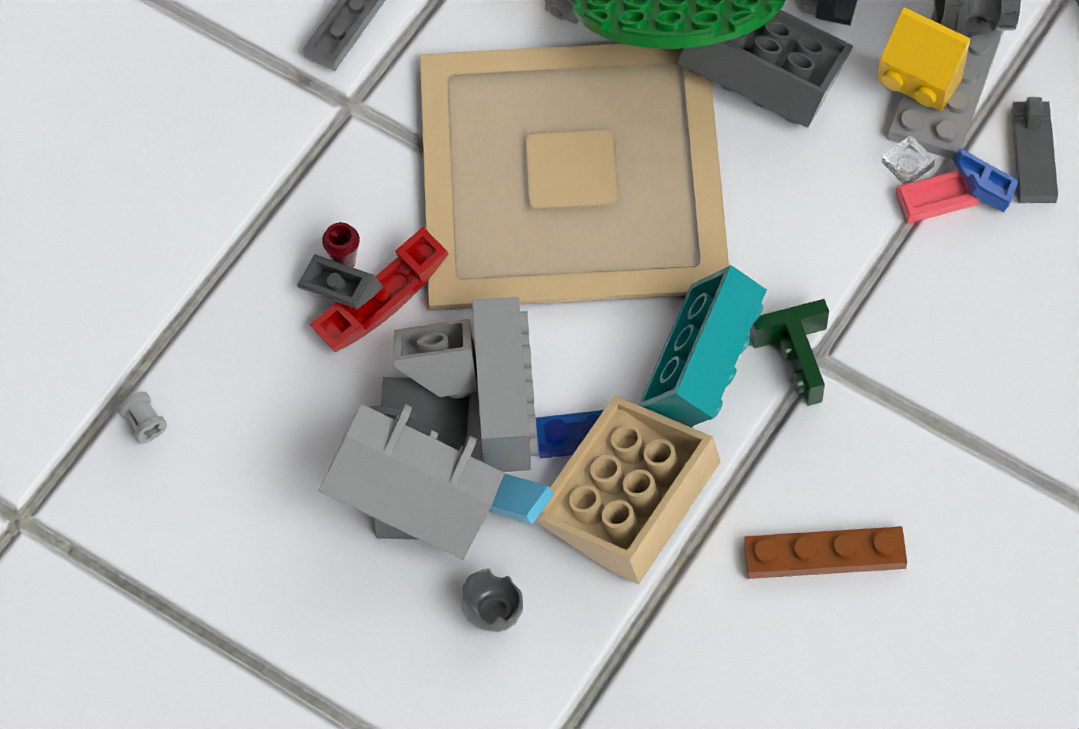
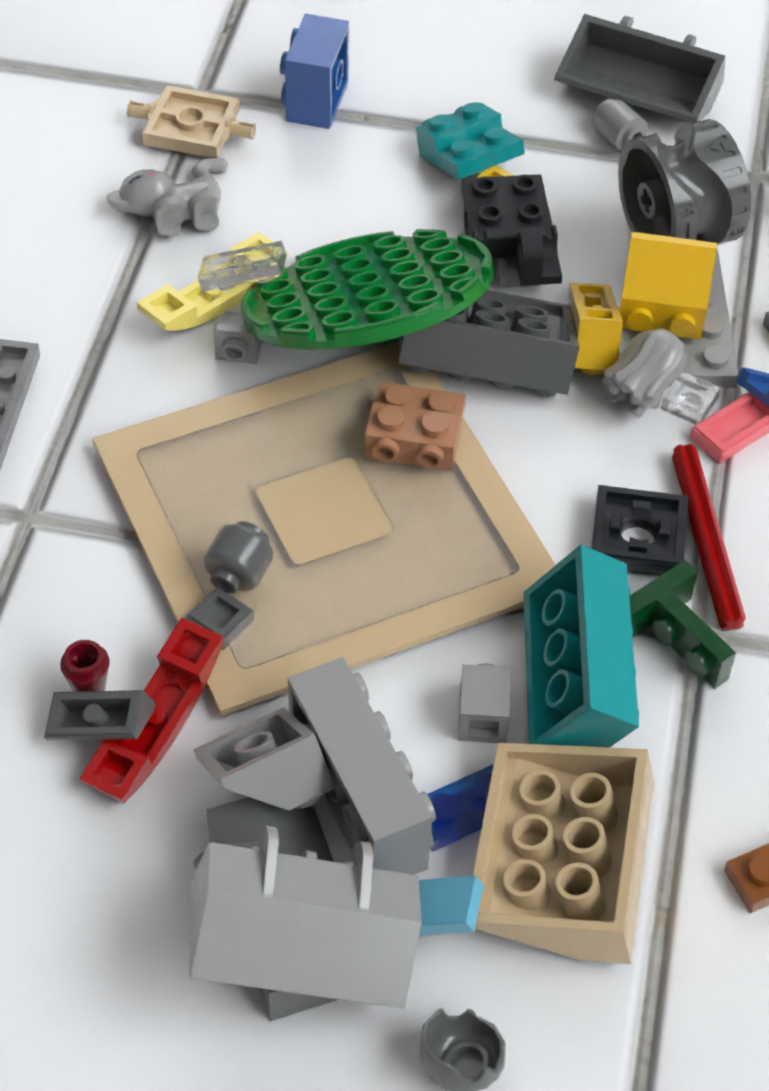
camera: 25 degrees left, 10 degrees down
(456, 233) = (222, 615): none -> dark grey tile
(485, 191) = (238, 557): none -> dark grey head
(622, 361) = (484, 703): none -> light grey brick
(670, 120) = (414, 426): none -> nougat plate
(808, 239) = (656, 512): none -> black piece
(857, 73) = (596, 325): none -> yellow slope
(862, 282) = (708, 538): none -> red axle
(876, 127) = (645, 370): none -> light grey piece

